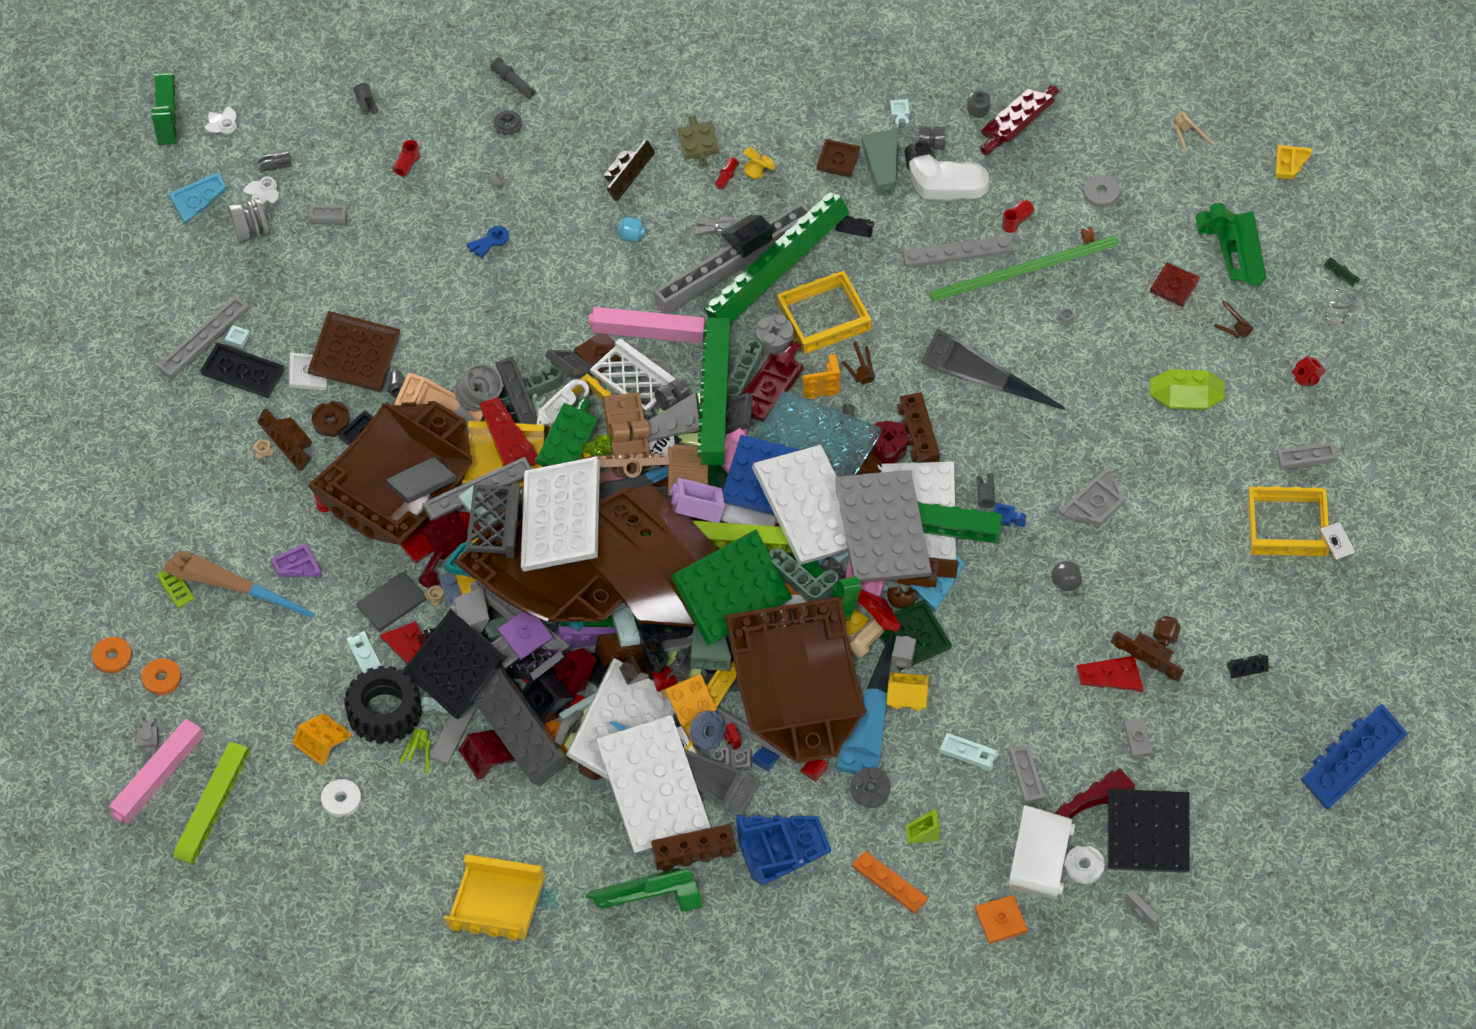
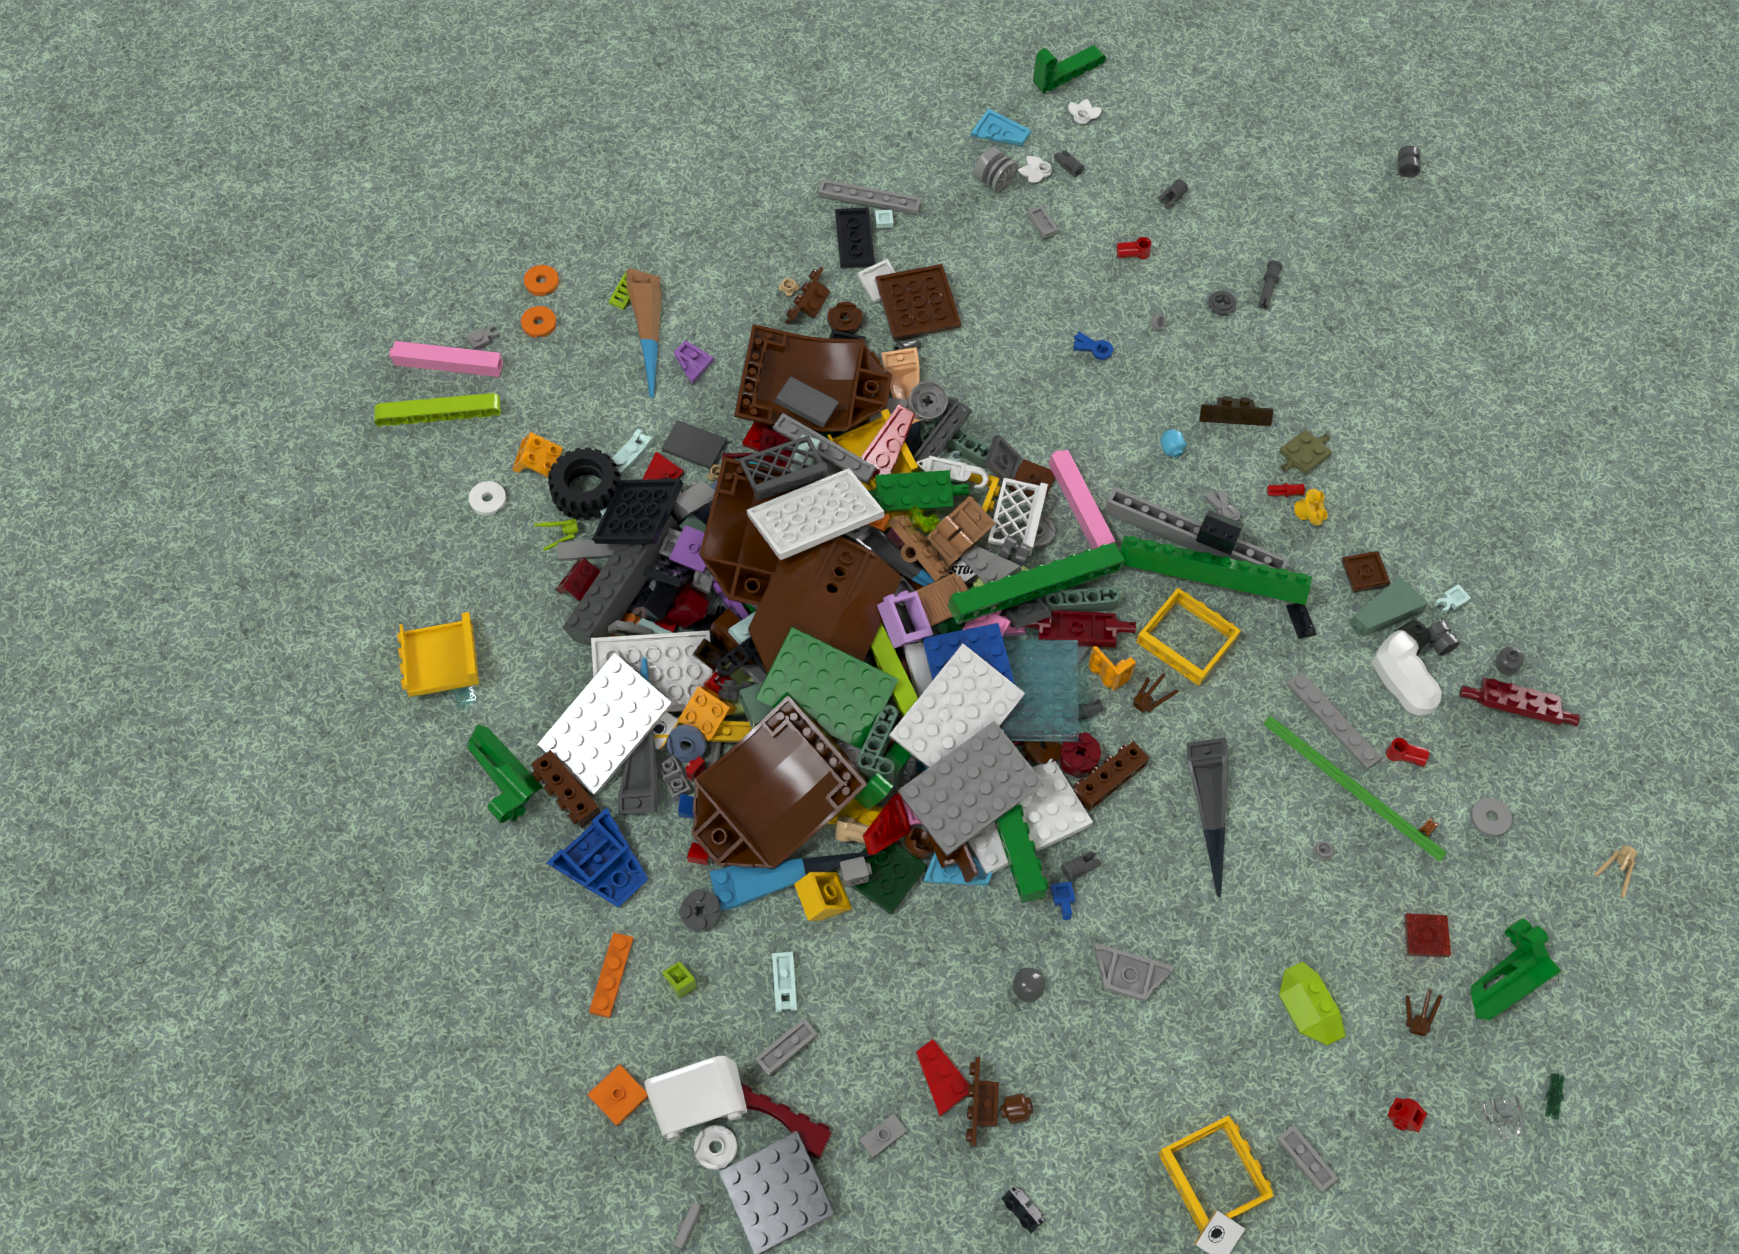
camera: 60 degrees right, 5 degrees up
(774, 333) = (1135, 605): light grey brick -> none
(1290, 161) = (1654, 983): yellow wing -> none

